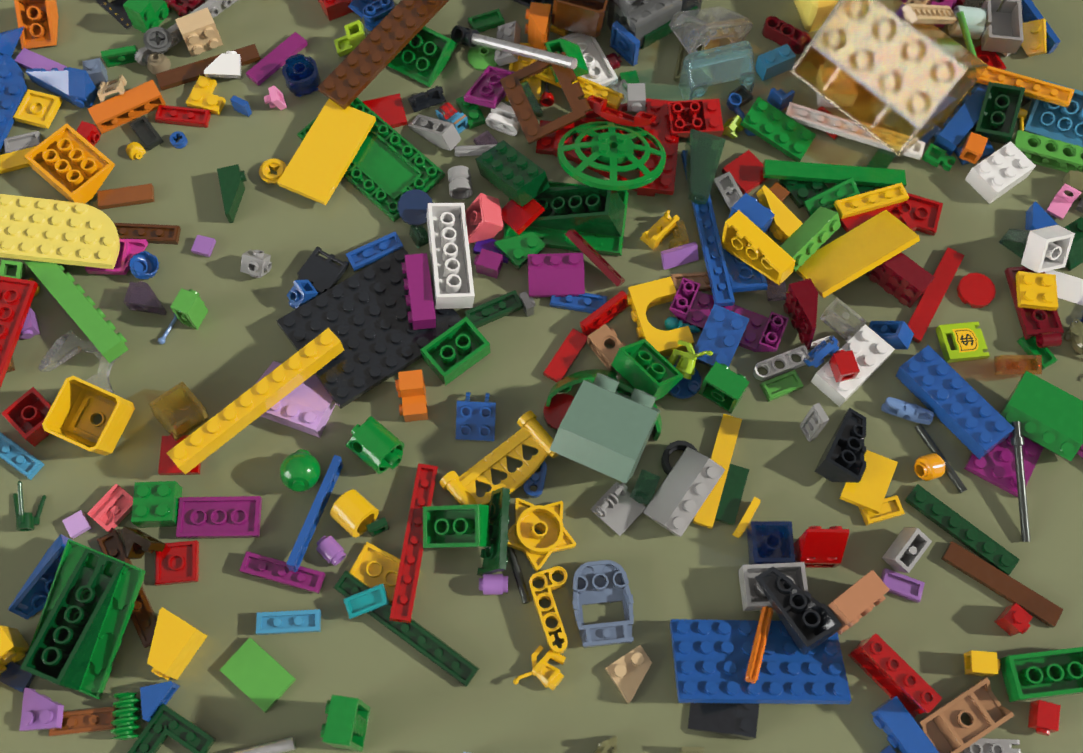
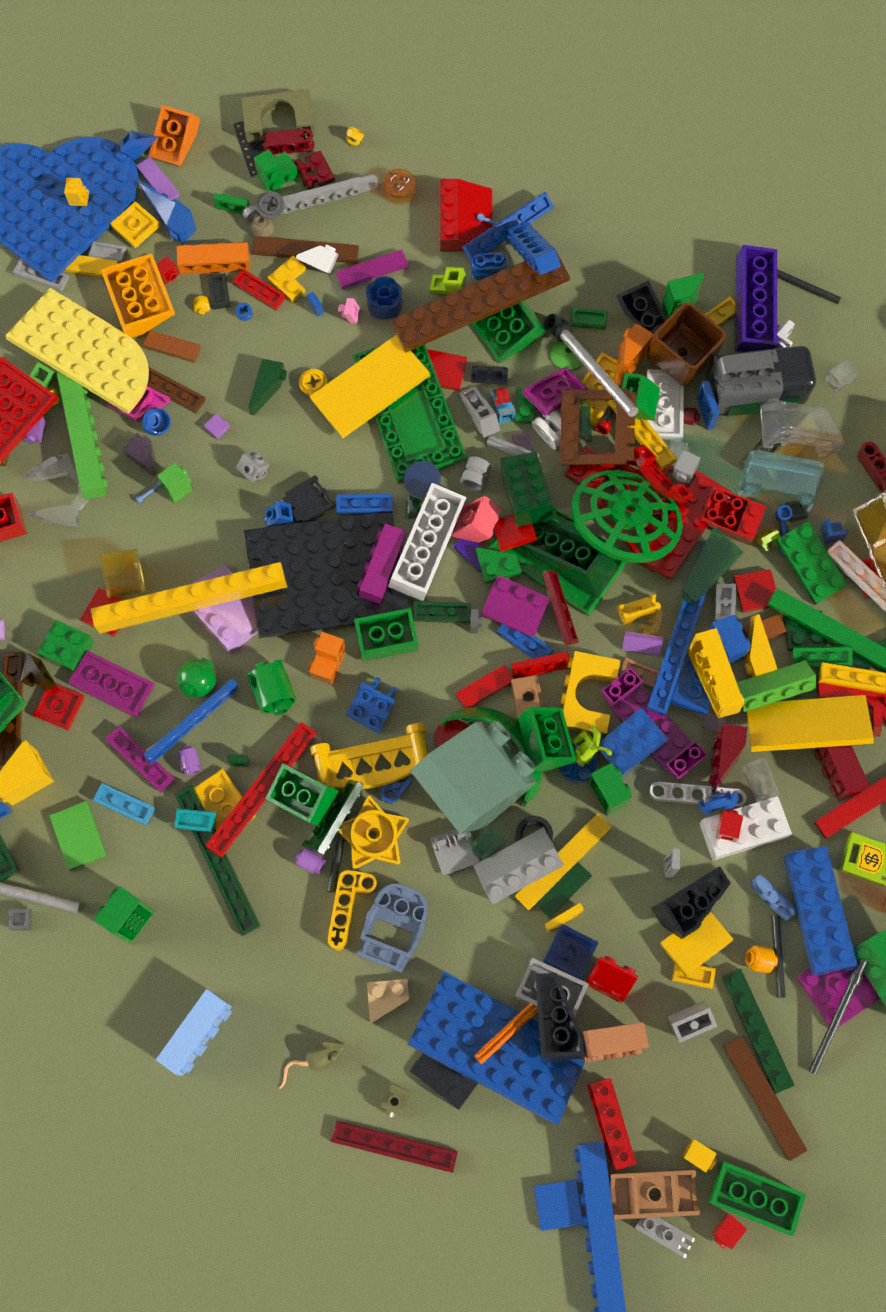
camera: 30 degrees right, 5 degrees up
(74, 412) = (30, 539): yellow plate -> none
(96, 70) = (201, 211): sand blue brick -> none
(112, 508) = (28, 631): coral plate -> none
(118, 87) = (214, 235): tan piece -> none
(199, 32) = (311, 212): tan brick -> none
(353, 512) = (223, 737): yellow piece -> none
(488, 263) = (461, 565): magenta brick -> none
(511, 33) = (599, 348): light grey piece -> none
(546, 673) = (313, 959): yellow piece -> none
(630, 76) = (696, 443): green tile -> none
(673, 323) = (599, 705): teal bar -> none
(775, 62) = (849, 491): dark azure brick -> none
(781, 385) = (668, 813): bright green tile -> none
(893, 332) = (801, 817): blue slope -> none
(903, 585) = (671, 1050): medium lavender tile -> none
(1014, 620) = (754, 1135): red brick -> none

